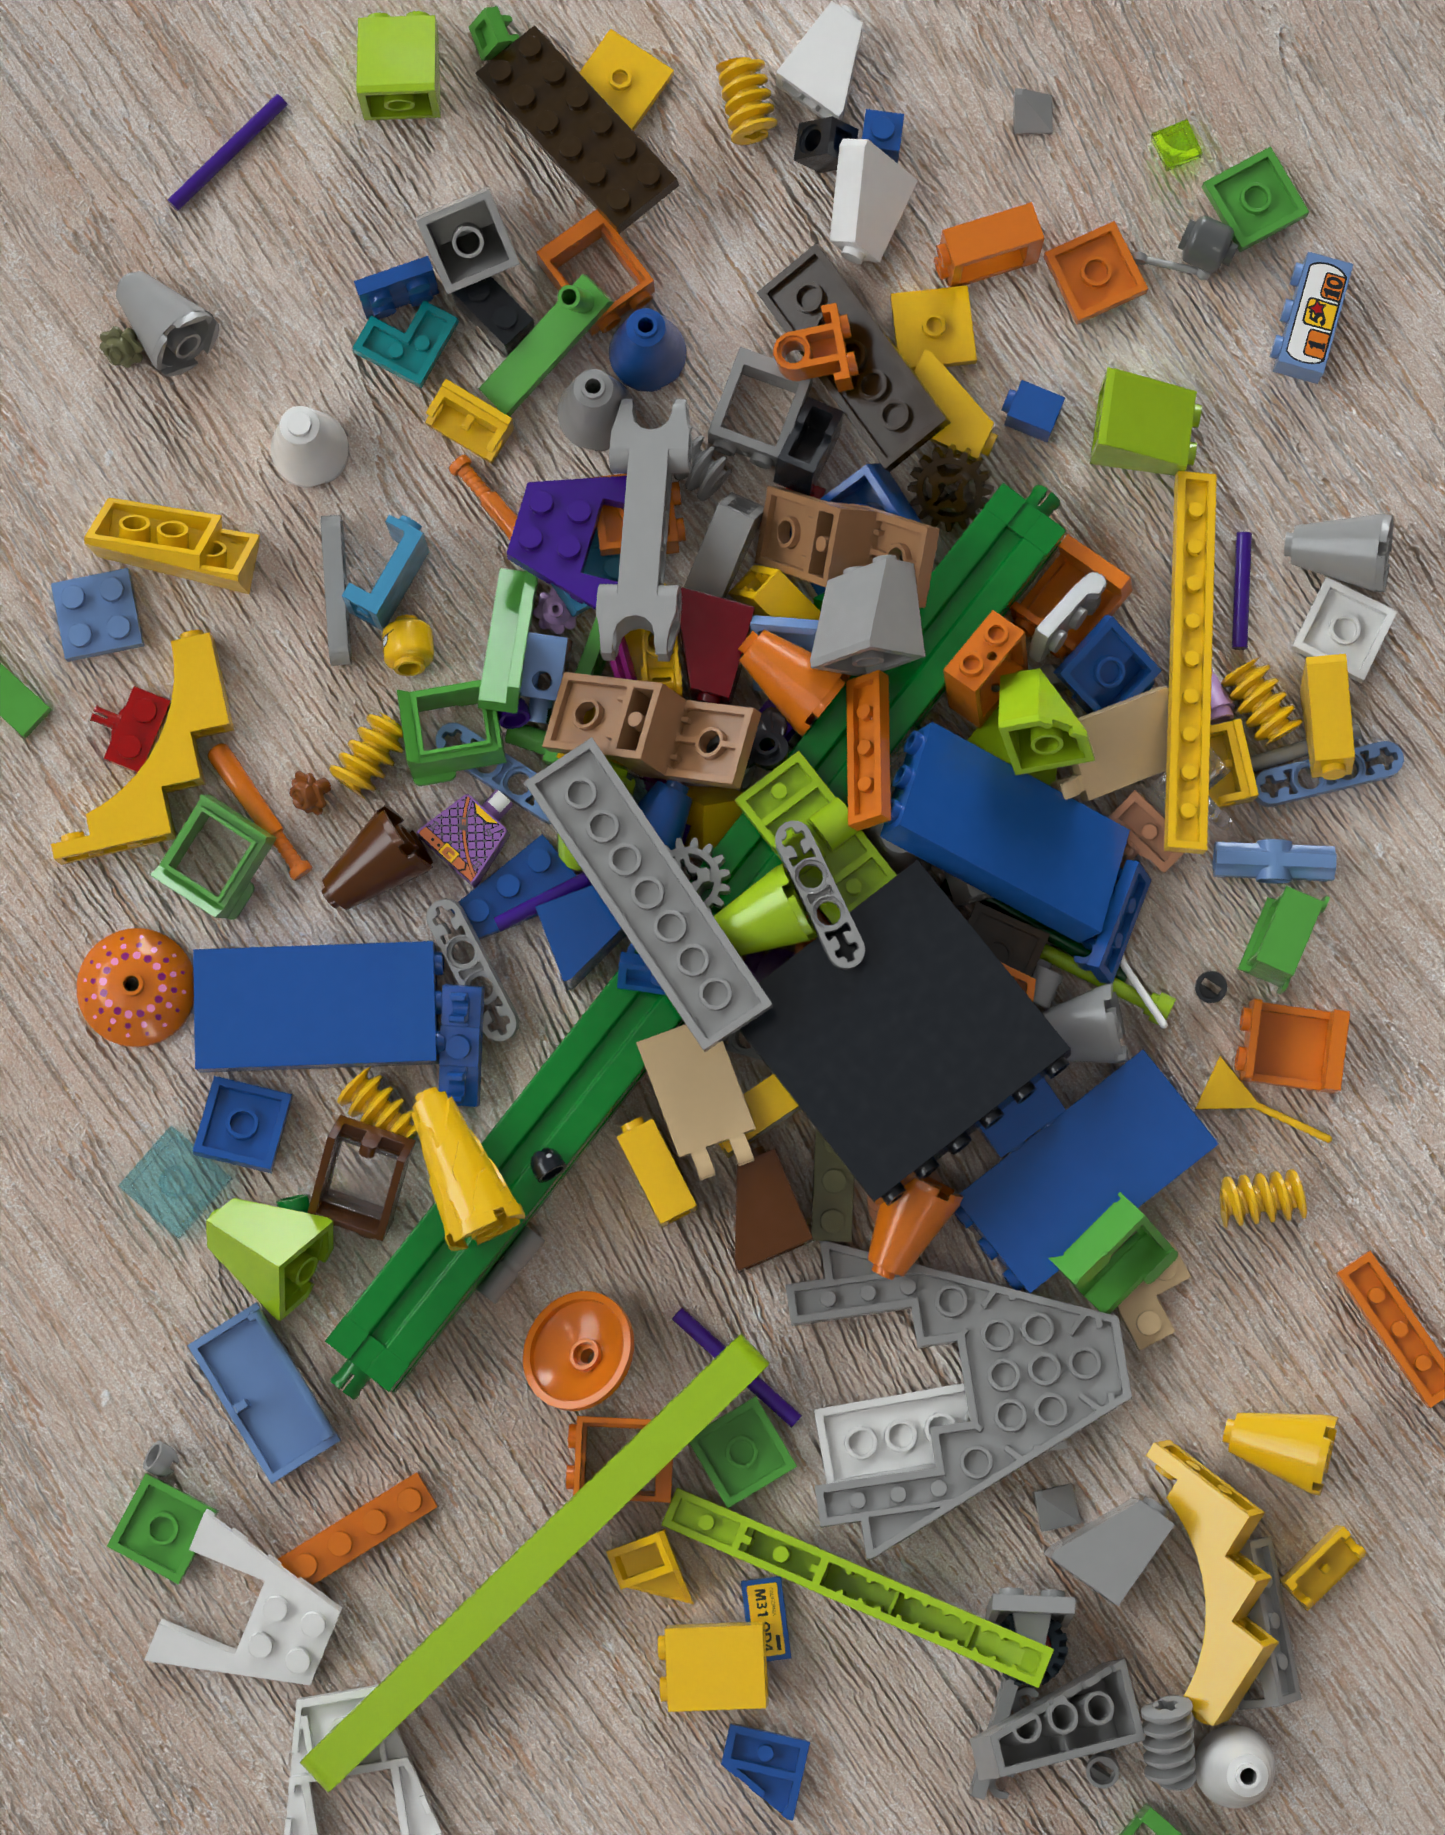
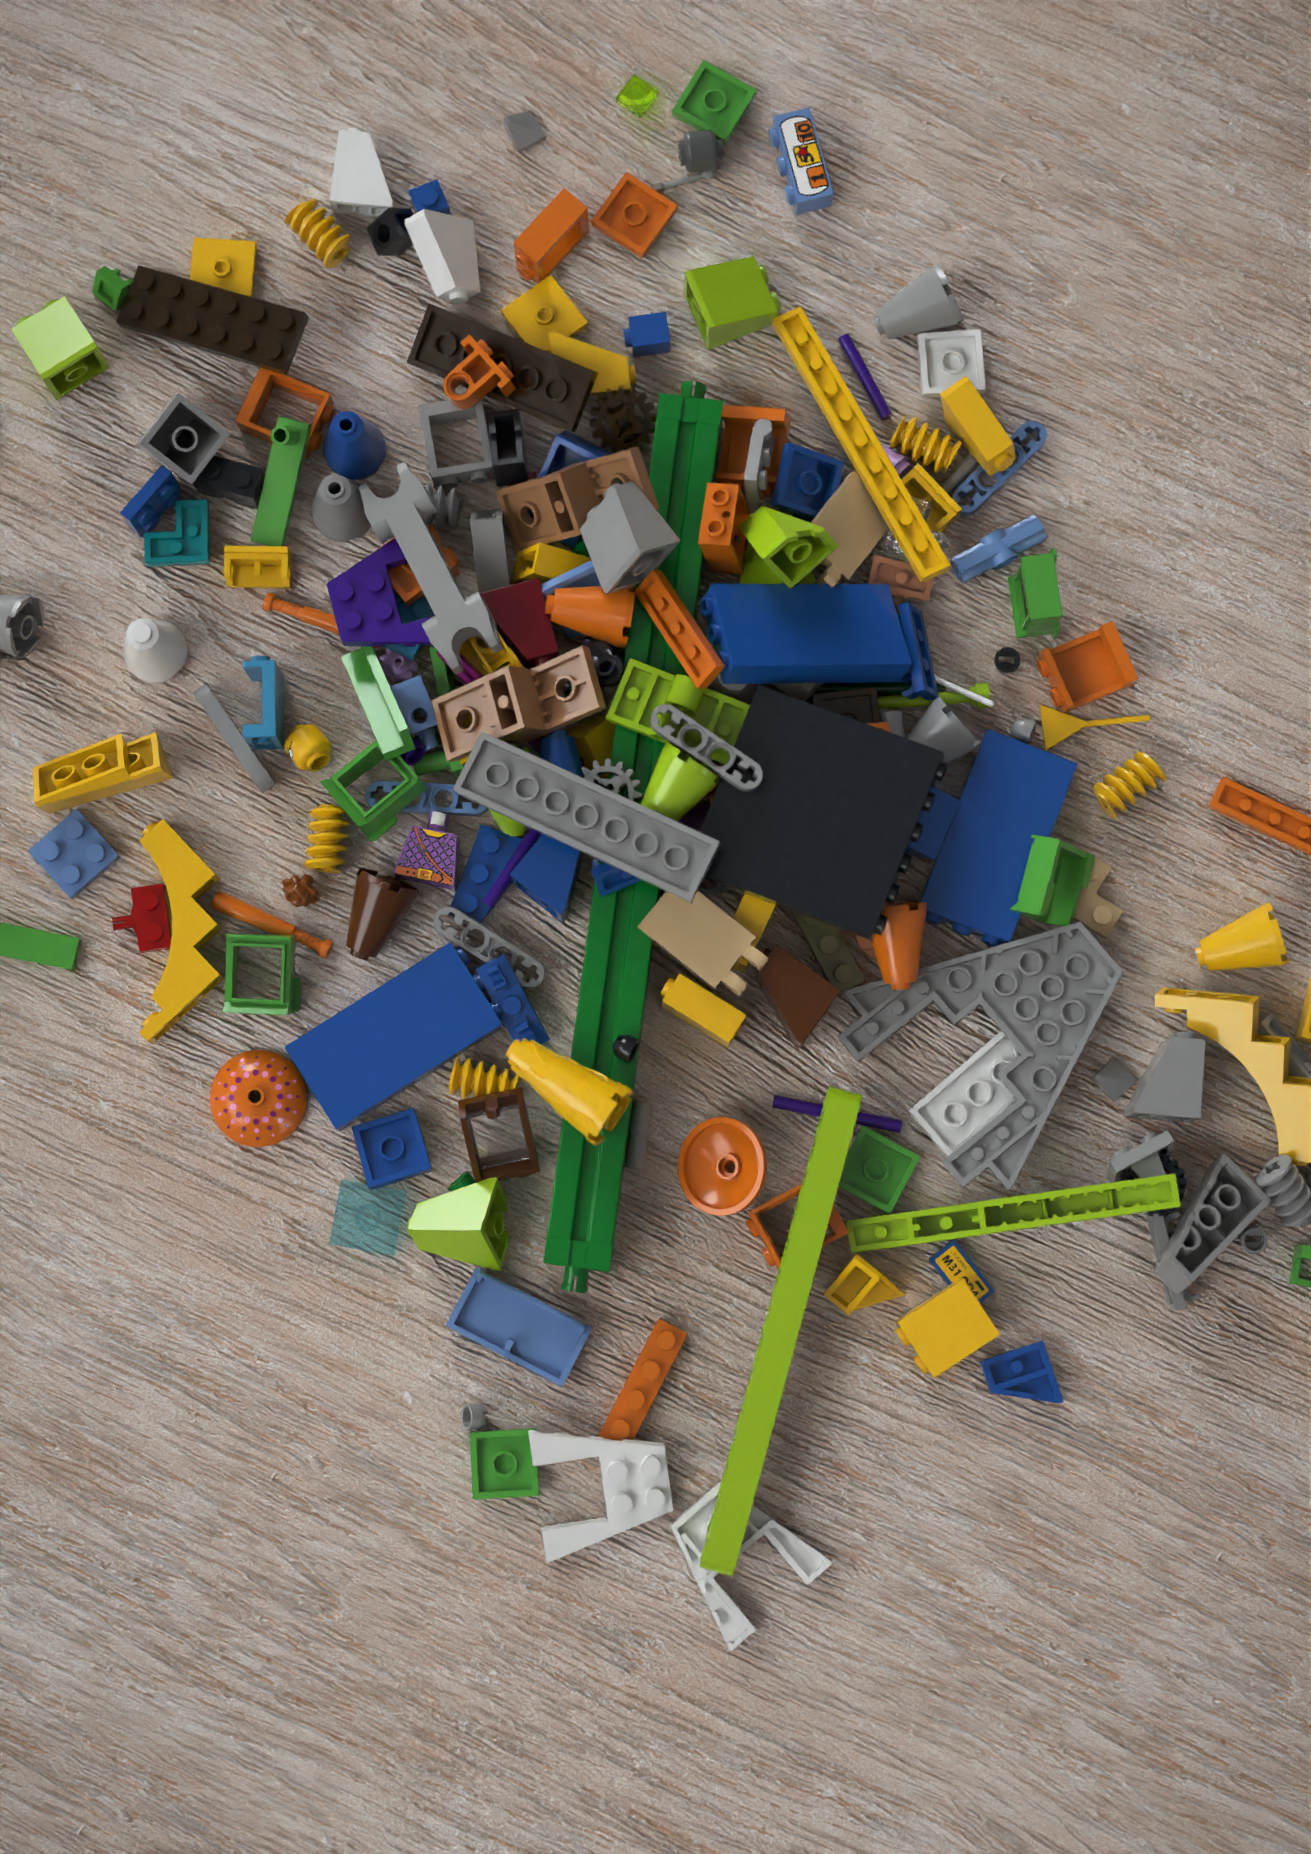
camera: 30 degrees left, 0 degrees up
(1184, 1074) = (1023, 730): none -> light grey hinge

